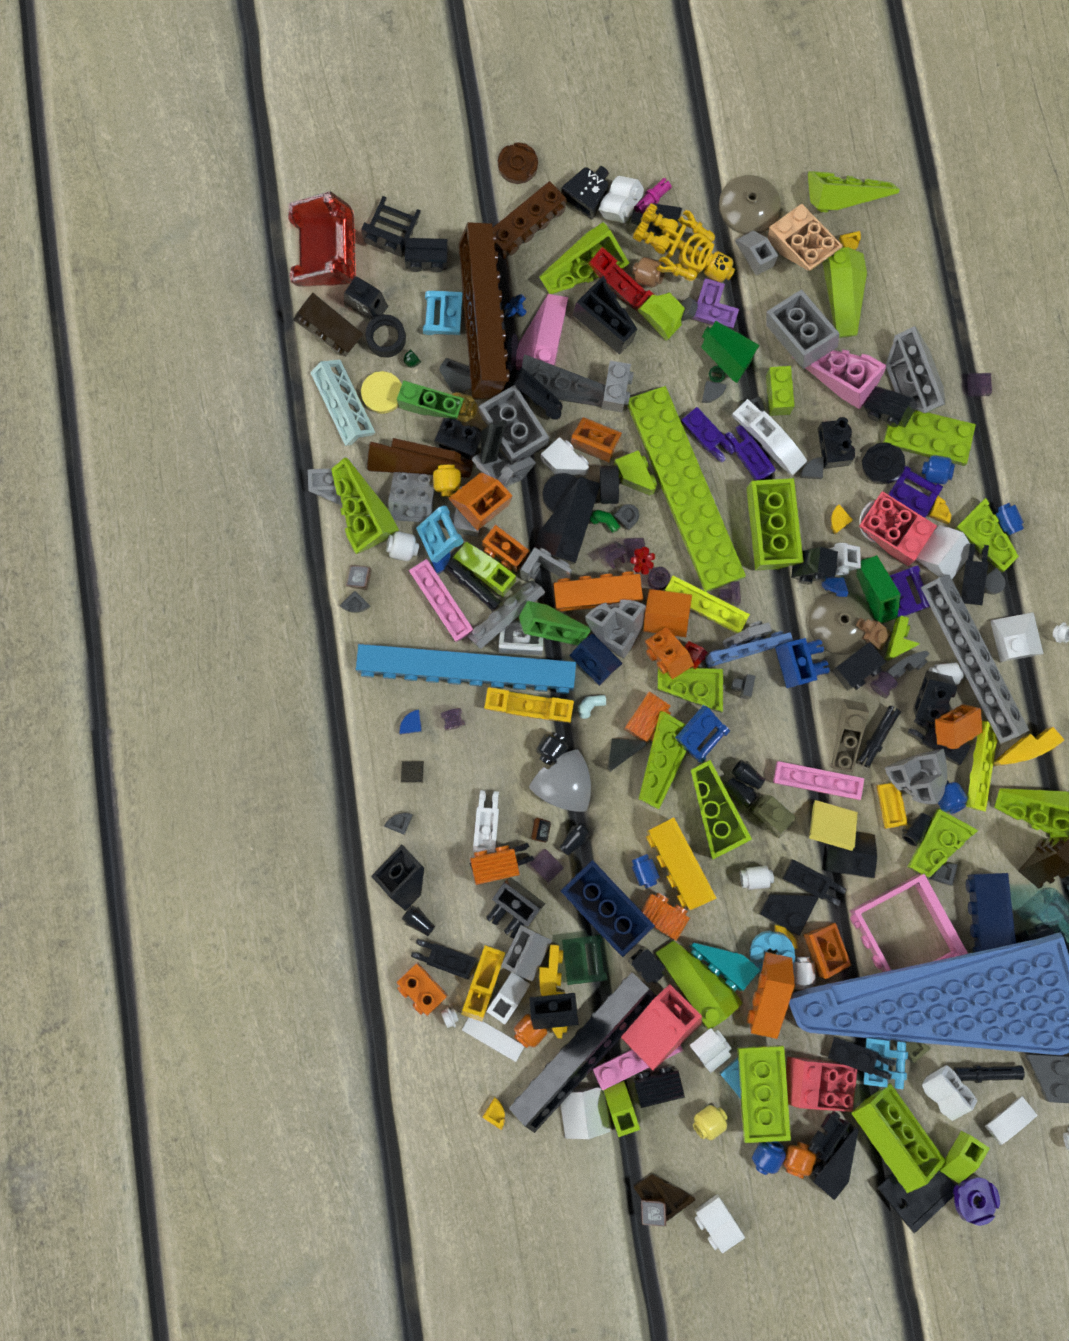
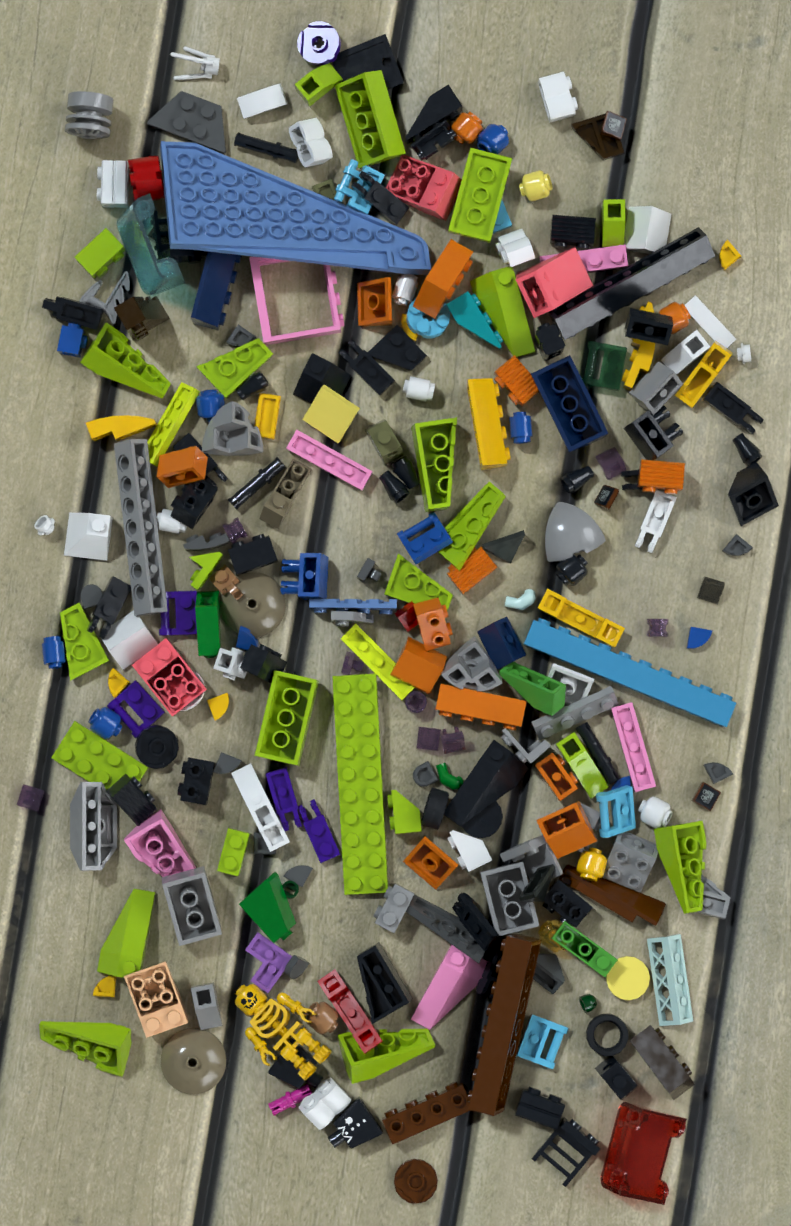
camera: 160 degrees left, 5 degrees up
(421, 989) = (762, 386): orange brick -> none
(515, 306) = (467, 1025): blue plant -> none
(642, 560) = (428, 722): red plant -> none
(663, 313) = (323, 968): lime slope -> none

